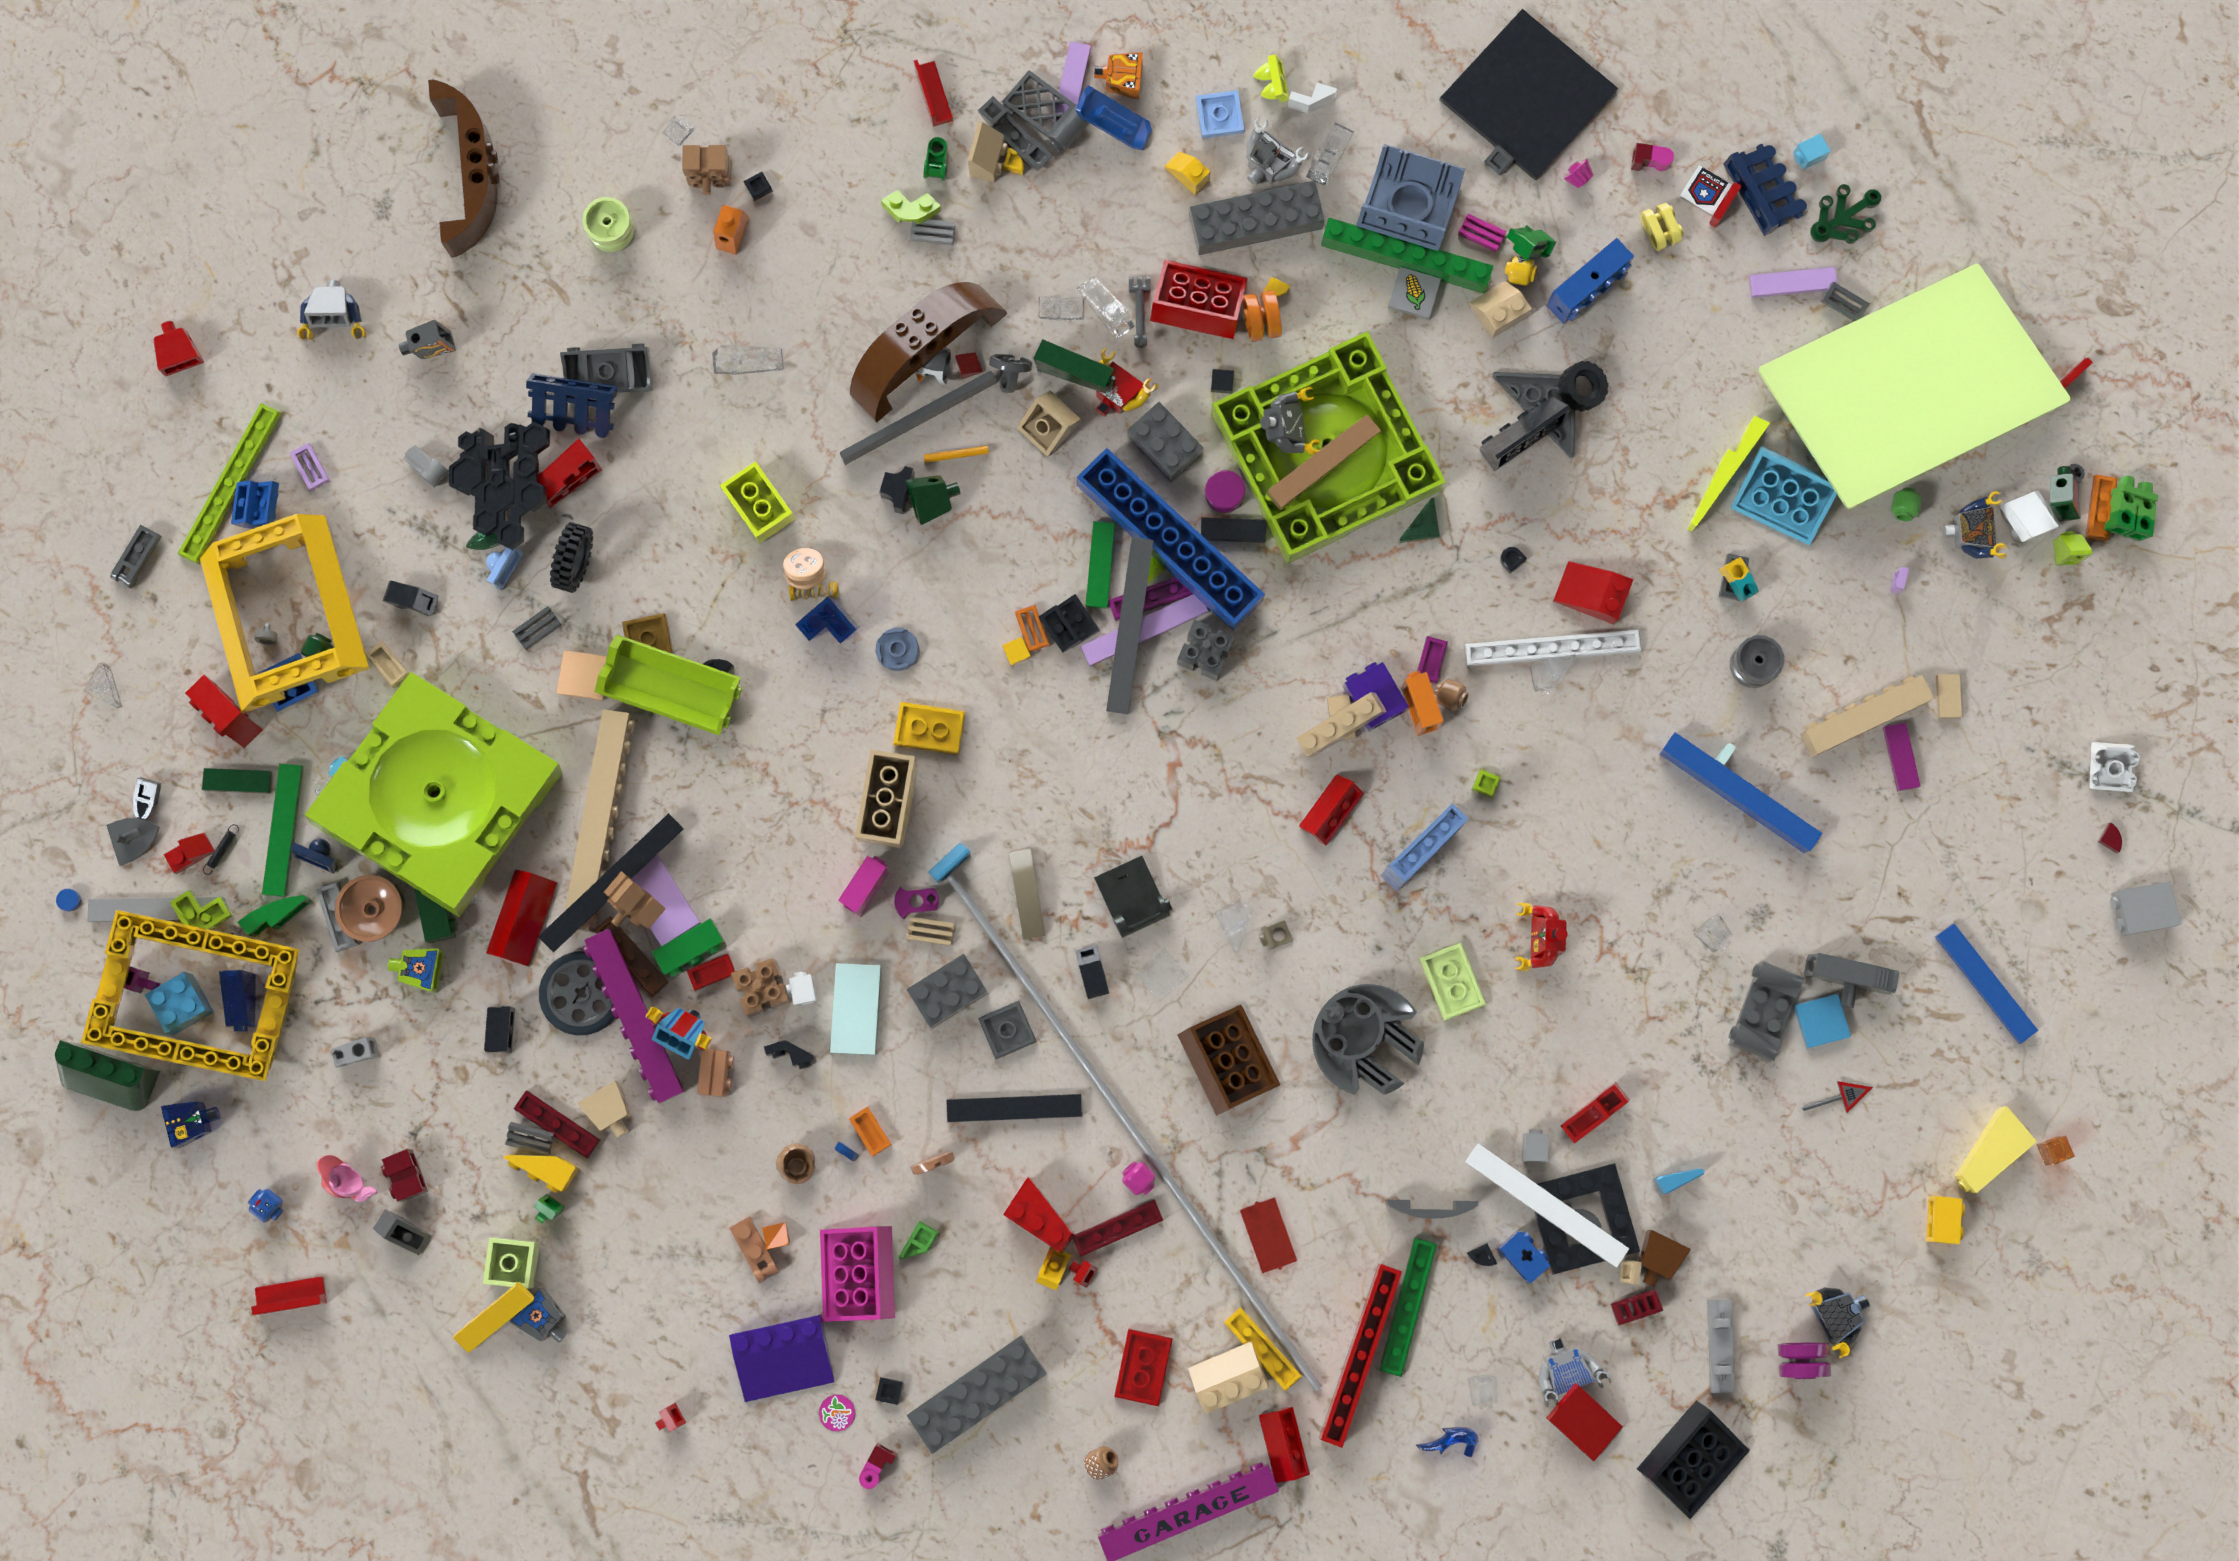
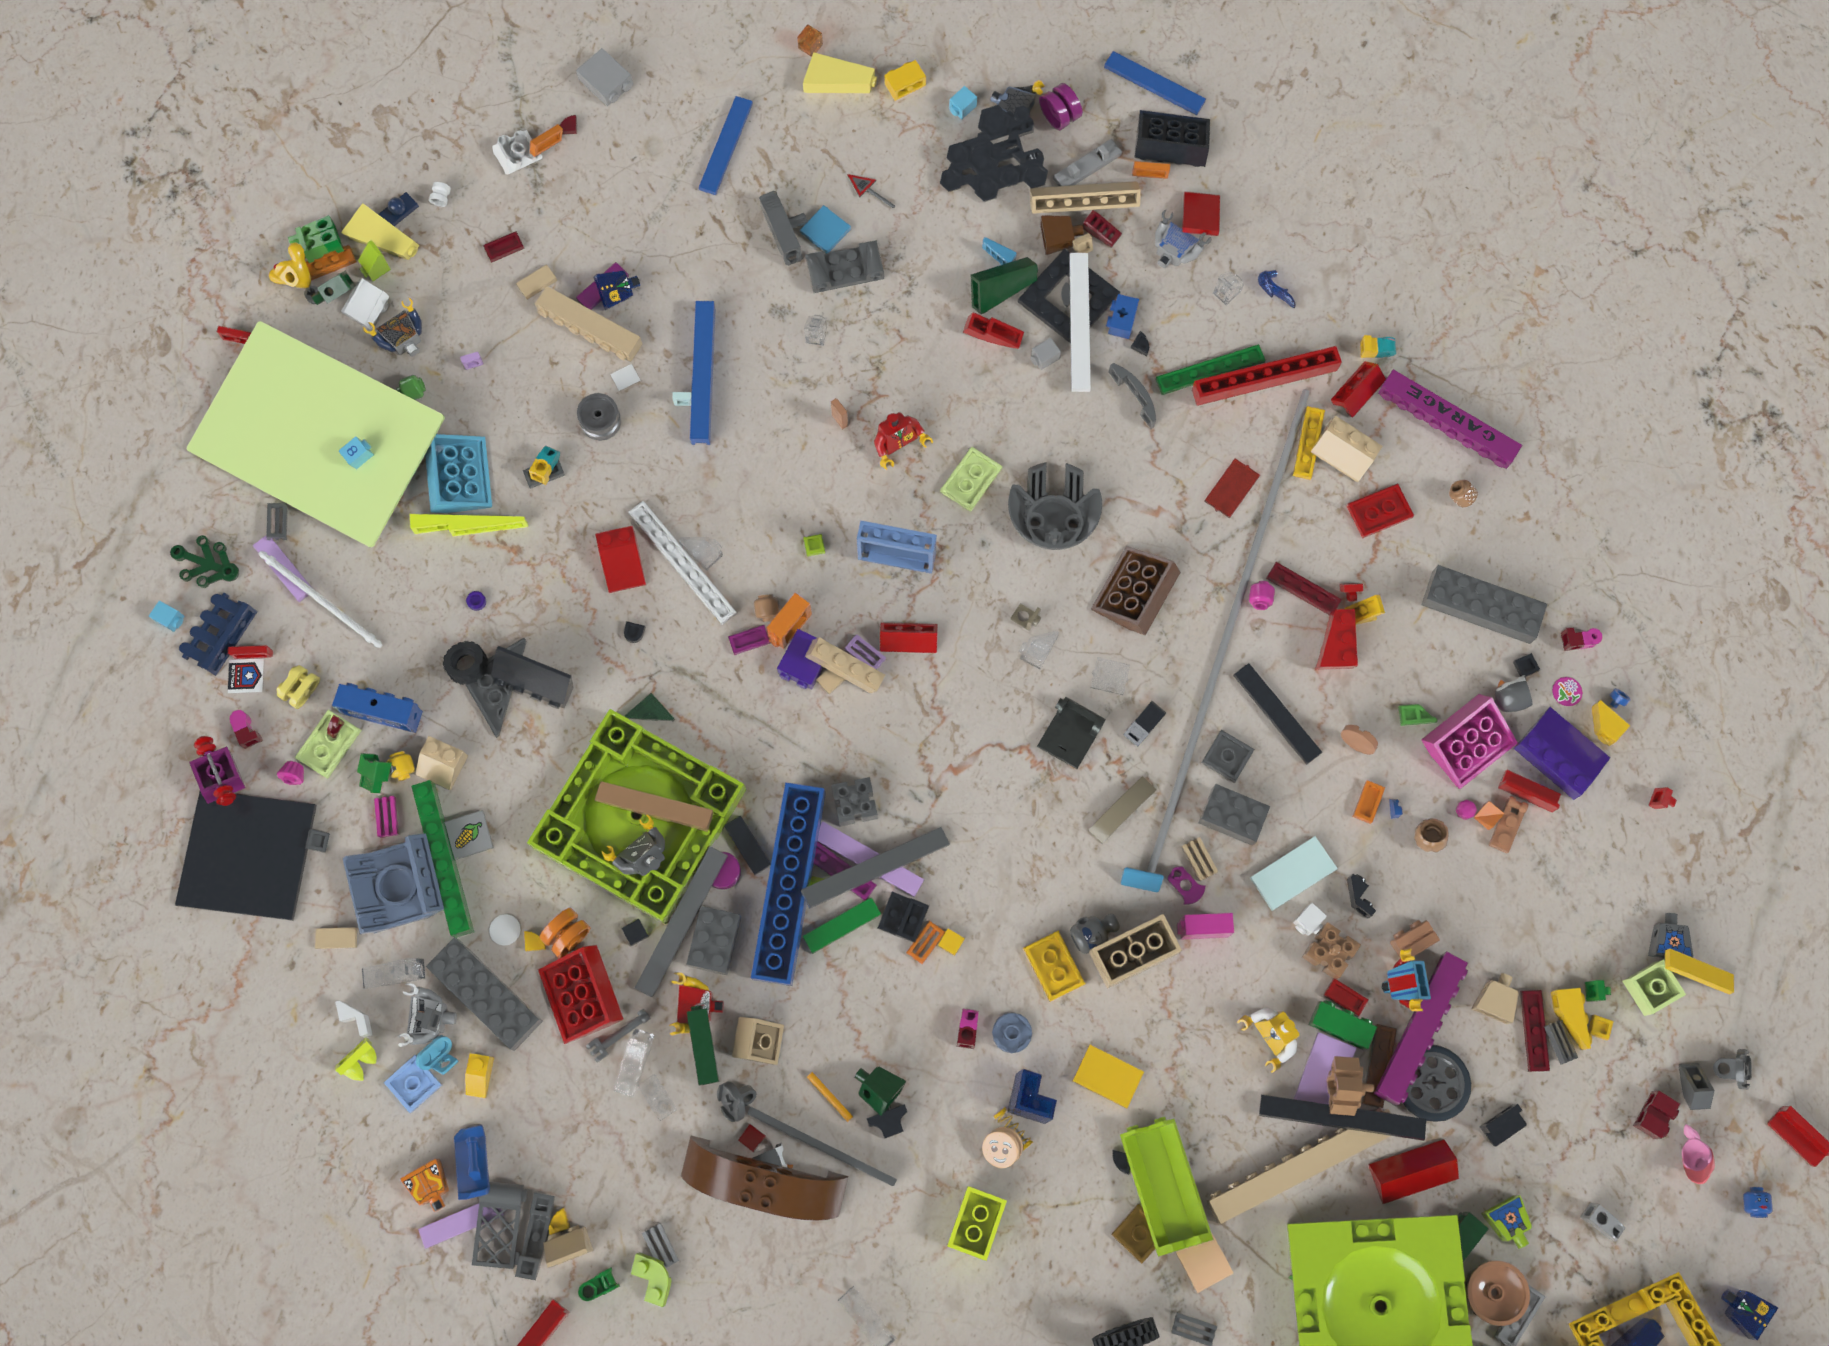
camera: 125 degrees left, 5 degrees down
(384, 1285) = (1739, 1068): none -> dark grey tile
(515, 1188) = (1600, 1027): none -> yellow tile
(727, 882) = (1277, 1032): none -> torso
(770, 1295) = (1530, 791): none -> red panel
(775, 1423) = (1607, 723): none -> yellow slope
(793, 1456) = (1619, 697): none -> blue tile
(797, 1219) = (1466, 809): none -> dark pink tile
(798, 706) = (1108, 1076): none -> yellow tile
(867, 1349) = (1513, 695): none -> dark grey piece
(928, 611) = (967, 1029): none -> leg
(932, 780) = (1092, 932): none -> dark grey piece
(1202, 424) = (681, 921): none -> dark grey tile
(1231, 145) = (435, 1054): none -> medium azure bracket
(1304, 272) = (504, 929): none -> white sticker
(1314, 1499) = (1377, 347): none -> leg
(1325, 763) = (877, 664): none -> lavender tile
(1397, 125) = (336, 938): none -> tan tile
(1587, 222) = (324, 752): none -> yellowish green tile
(1599, 235) = (334, 726): none -> dark red tile
(1605, 893) = (839, 413): none -> nougat tile
(1622, 107) = (216, 772): none -> magenta brick
(1641, 435) = (476, 600): none -> dark purple tile
(1642, 1156) = (1000, 283): none -> dark green slope
(1670, 318) = (369, 637): none -> white hose
(1670, 1407) = (1151, 170): none -> orange tile
(1683, 1312) = (1085, 197): none -> tan brick
(1771, 1490) = (1154, 83): none -> blue tile
(1786, 718) = (625, 377): none -> white sticker
(1796, 1236) = (985, 156): none -> black piece
(1863, 406) = (356, 452): none -> medium azure brick
(1877, 1262) = (962, 102): none -> medium azure brick
(1889, 765) = (615, 287): none -> clear blue torso
(2010, 688) = (503, 246): none -> dark red tile
(2102, 574) = (369, 226): none -> light yellow slope
(2105, 801) = (546, 140): none -> orange tile
(2108, 465) = (294, 271): none -> yellow head
(2110, 660) = (439, 194): none -> white wheel
(2119, 611) = (399, 208): none -> dark blue tile

